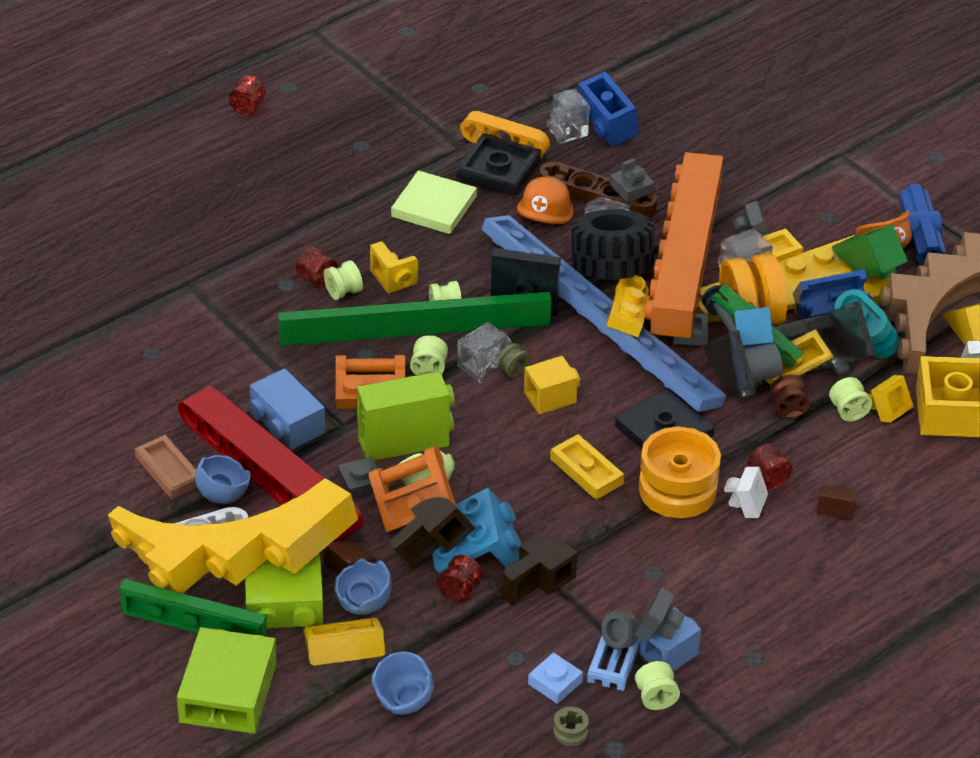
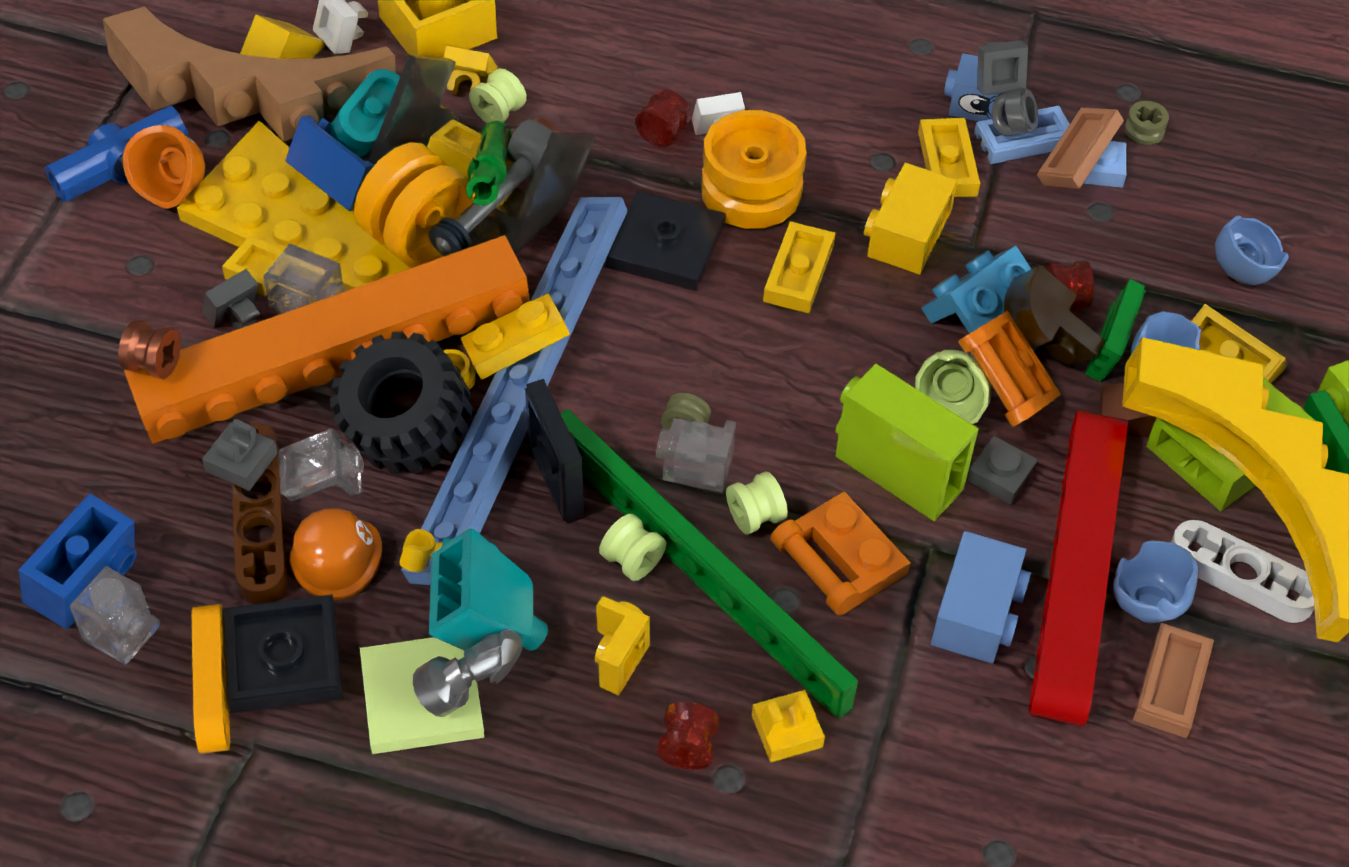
camera: 125 degrees left, 10 degrees up
(290, 302) = (788, 726): none -> yellow tile
(343, 280) = (689, 682): yellowish green wheel -> none
(405, 577) = (1116, 330): none -> green tile
(449, 211) = (476, 605): none -> teal torso
(540, 564) = (982, 225): dark brown brick -> none
(551, 384) = (699, 357): yellow brick -> none
(568, 653) = (1080, 147): none -> nougat tile
(584, 530) = (910, 217): none -> yellow brick
(618, 588) = (950, 153): none -> yellow plate
(657, 685) = (1047, 73): yellowish green wheel -> none
(717, 153) = (149, 349): none -> copper wheel
(754, 325) = (510, 146): dark azure tile -> none
(837, 502) = (658, 58): copper slope -> none
(874, 251) = (236, 149): green slope -> none

